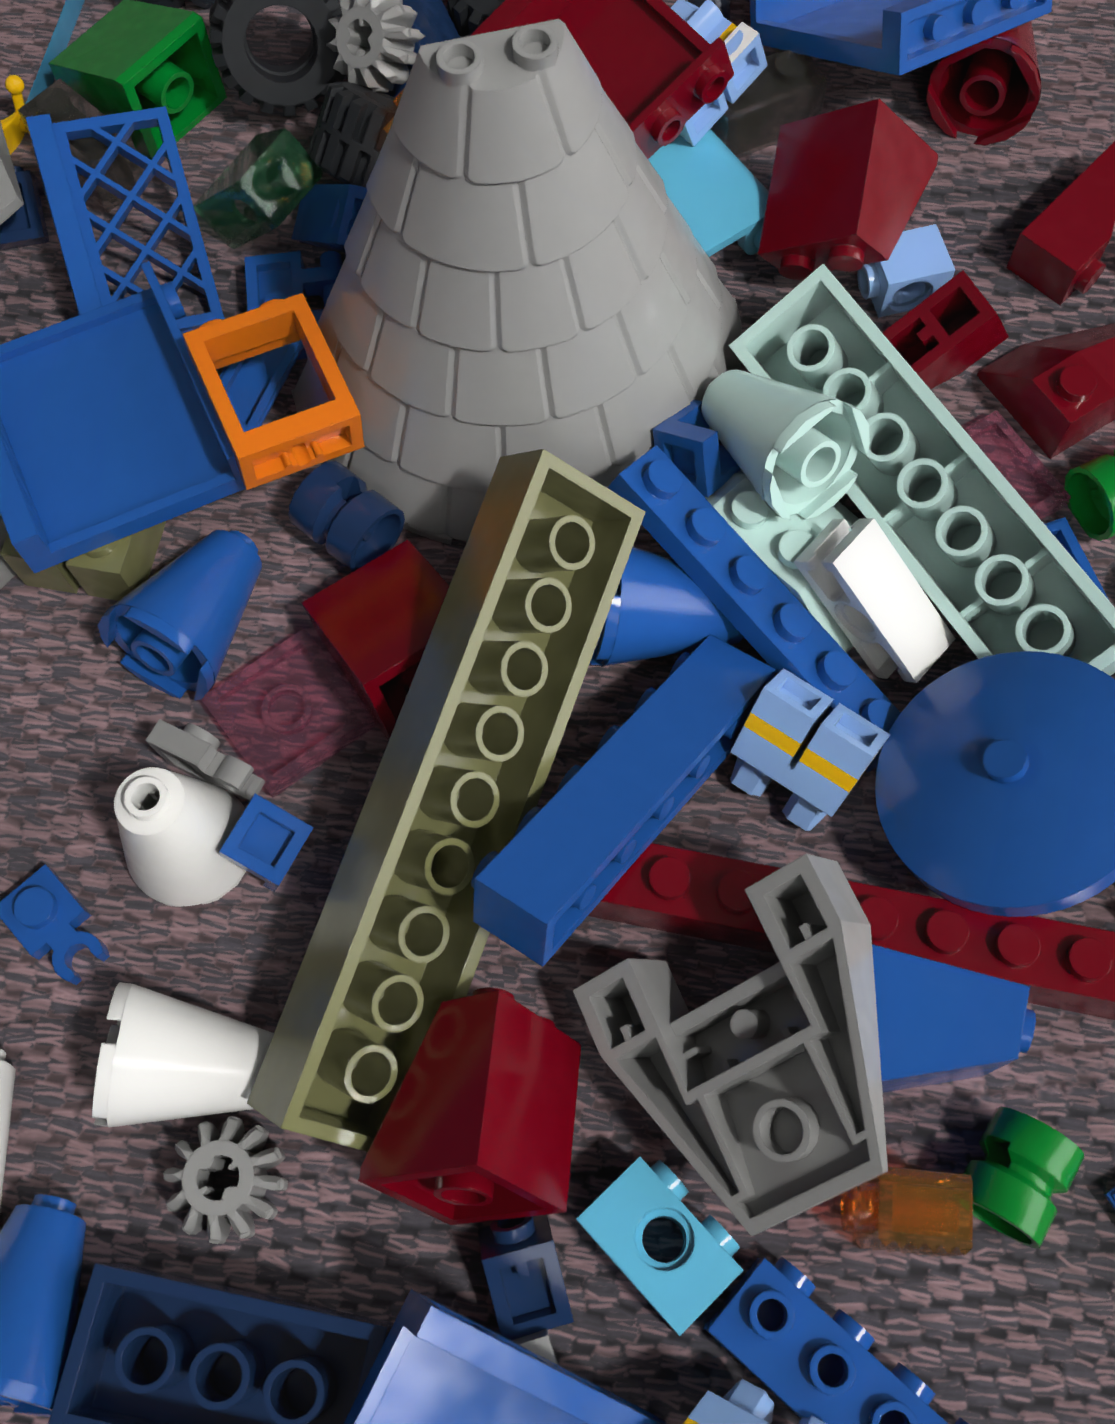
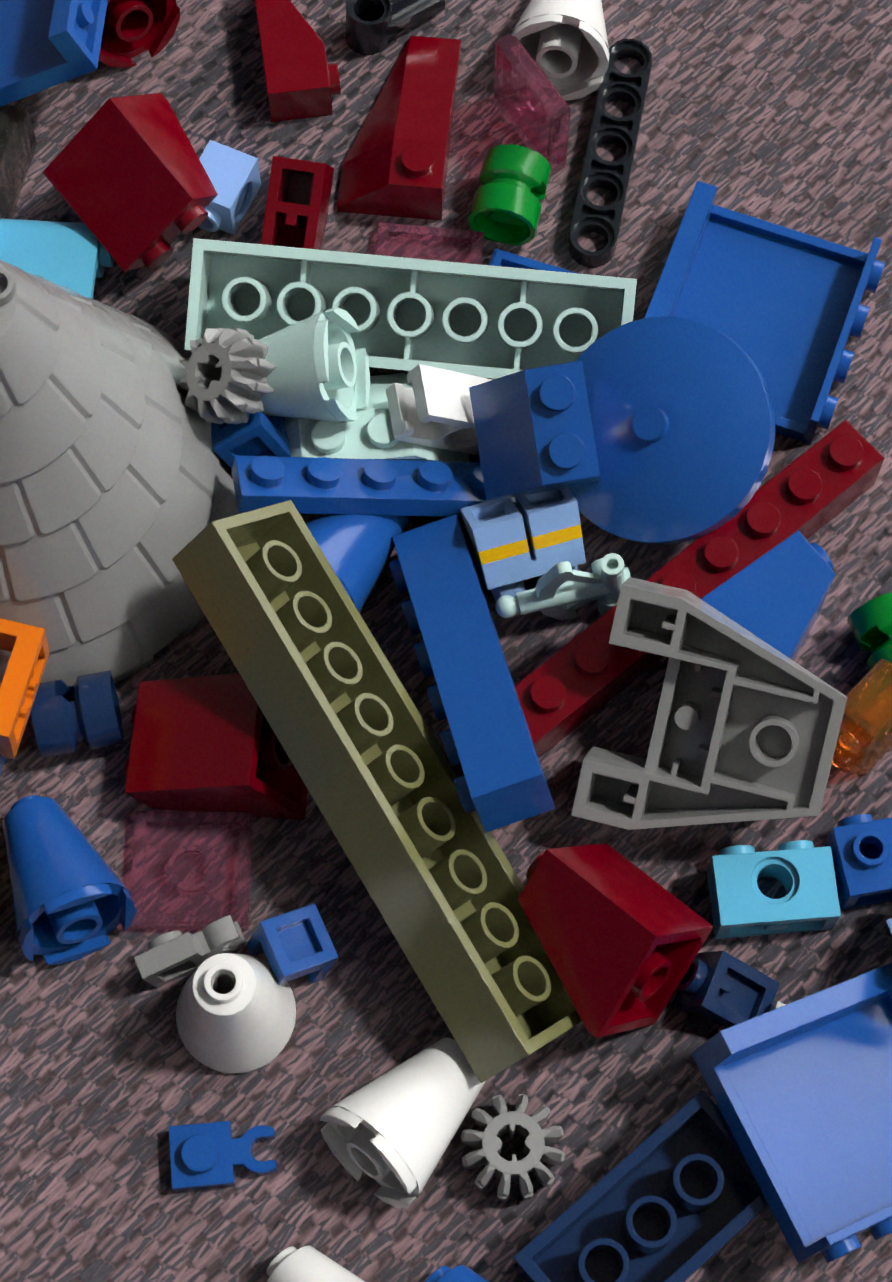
camera: 55 degrees left, 0 degrees up
(716, 376) = (226, 375): none -> light grey gear
(785, 820) = (561, 598): none -> light aqua piece
(908, 668) = (535, 431): none -> blue slope

